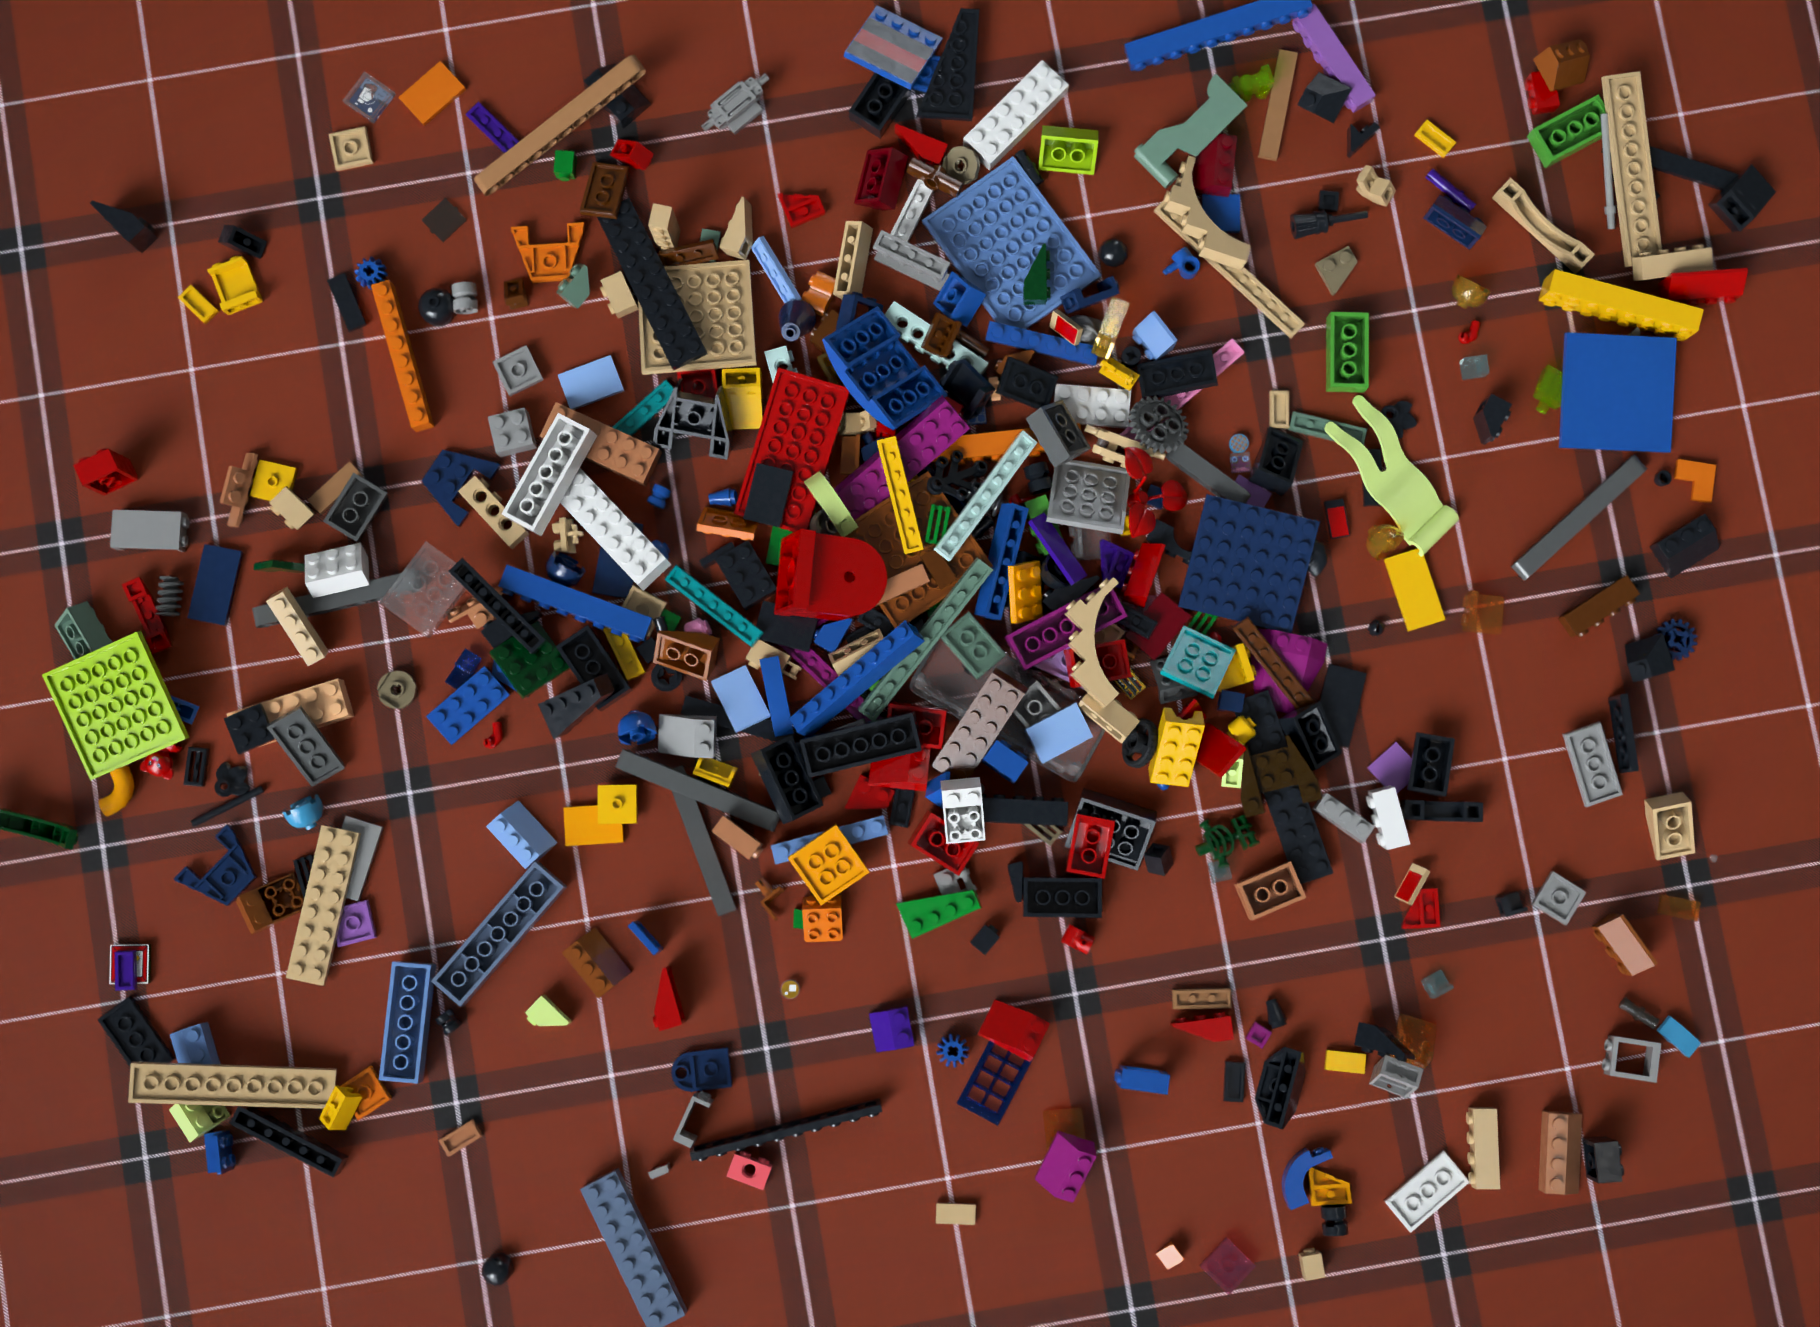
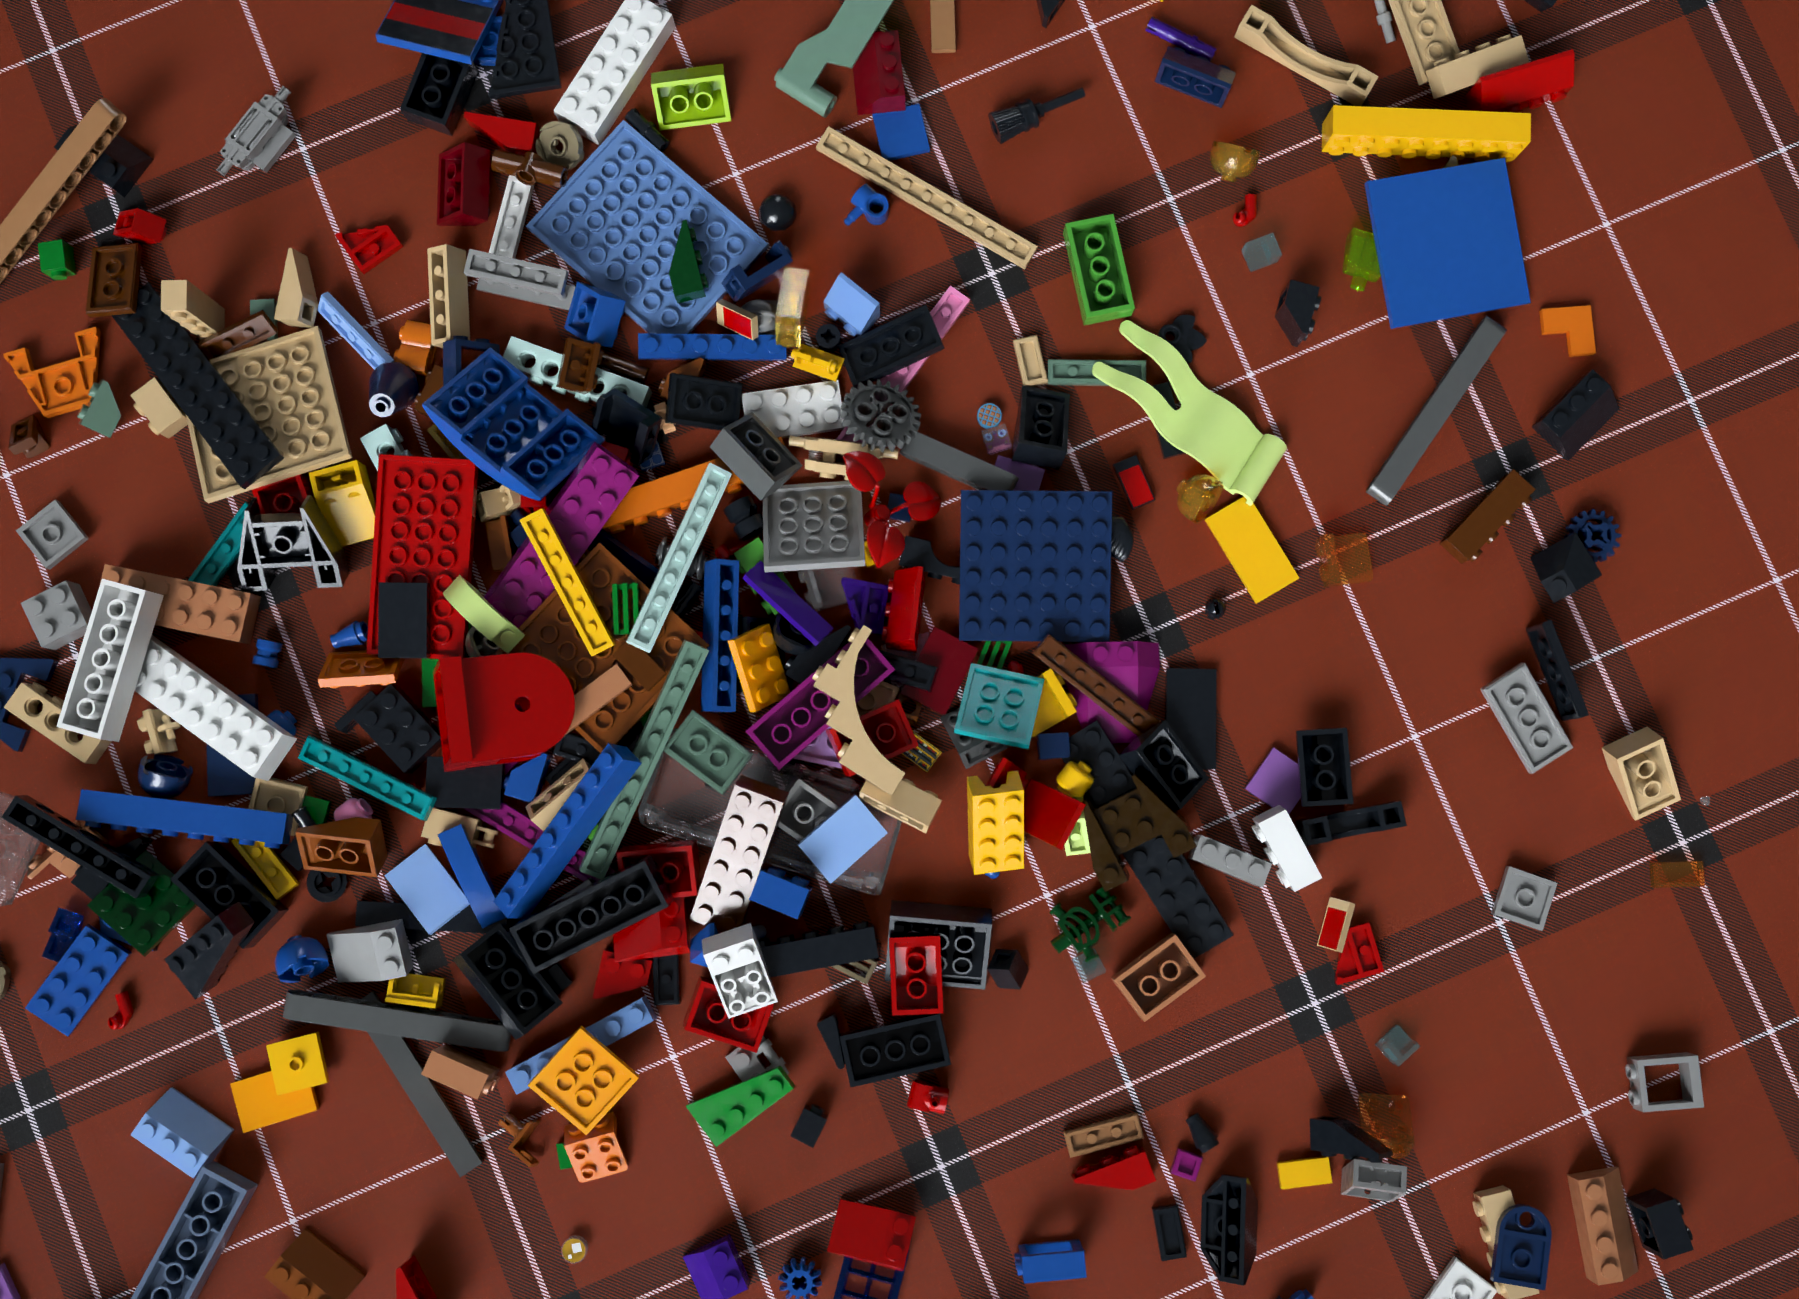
camera: 15 degrees left, 0 degrees up
(590, 382) = (150, 528): light blue tile -> none
(645, 937) = (369, 1230): blue tile -> none
(978, 469) = (636, 543): black plant -> none
(1140, 743) = (950, 827): black wheel -> none
(1213, 242) = (898, 169): tan arch -> none
(1328, 201) = (1031, 86): black plate -> none
(1336, 268) = (1061, 168): dark tan wing -> none
(1374, 188) = (1085, 57): tan brick -> none
(1494, 1154) = (1520, 1250): none -> dark blue tile
(1510, 904) = (1465, 921): black panel -> none
(1623, 944) = (1620, 939): slope -> none
(1639, 1013) = (1659, 1021): clear smoke pin -> none
(1662, 478) = (1528, 337): black hinge -> none
(1678, 1036) = (1716, 1039): dark azure slope -> none

